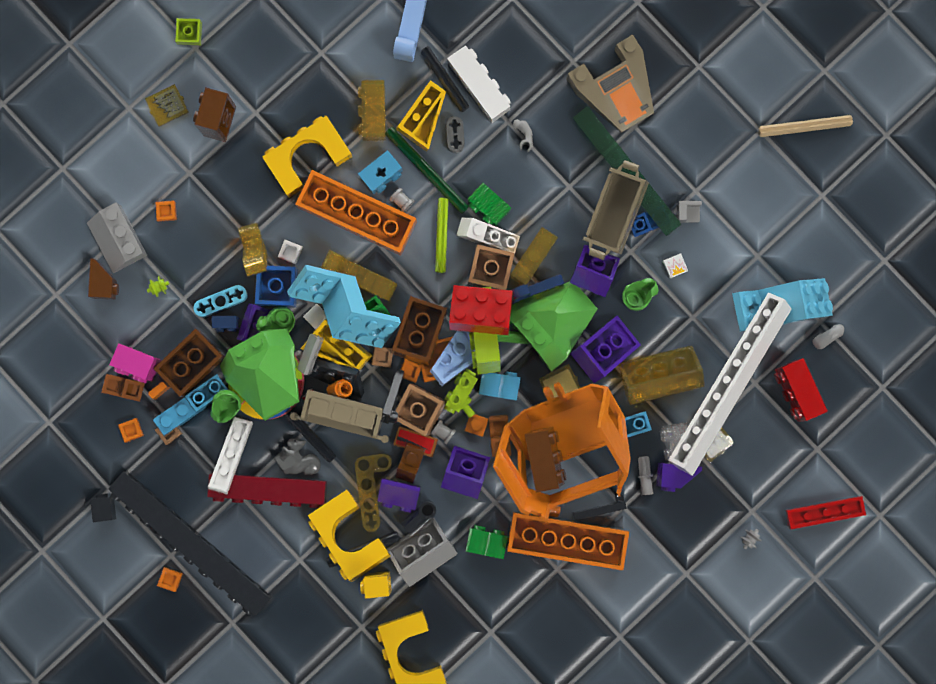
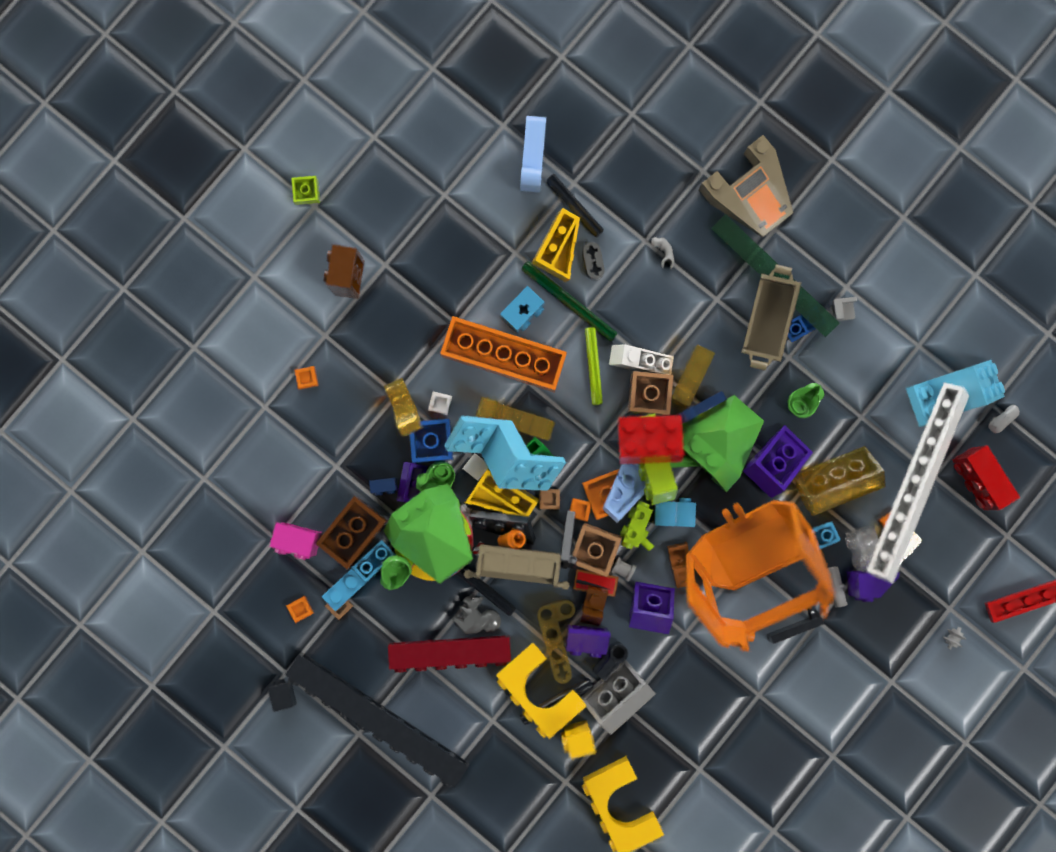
camera: 10 degrees left, 0 degrees up
(101, 282) = (249, 460): reddish brown slope -> none
(116, 237) = (258, 412): light grey slope -> none
(122, 387) = (285, 566): dark orange slope -> none
(157, 391) = (323, 564): orange tile -> none
(158, 286) = (308, 457): lime wheel -> none
(166, 105) = (293, 268): piece -> none
(170, 579) = (361, 759): orange tile -> none
(205, 301) = (390, 460): medium azure beam -> none
(230, 455) = (407, 623): white tile -> none
(310, 354) = (476, 507): light grey slope -> none
(320, 133) = (456, 277): yellow arch -> none
(372, 110) = (505, 246): clear yellow brick -> none
(401, 200) = (548, 335): light grey bush -> none
(419, 331) = (585, 468): reddish brown brick -> none
(476, 425) = (656, 557): orange plate -> none
(478, 83) = (611, 205): white brick -> none
(486, 542) = (683, 678): green brick -> none
(488, 204) = (637, 328): green brick -> none
(545, 459) = (735, 585): reddish brown brick -> none
(564, 376) = (736, 494): clear yellow piece -> none
(568, 541) = (768, 666): orange brick -> none
(594, 273) = (756, 385): dark purple slope -> none
(675, 266) = (837, 366): tile -> none
(803, 126) = (949, 206): tan axle -> none

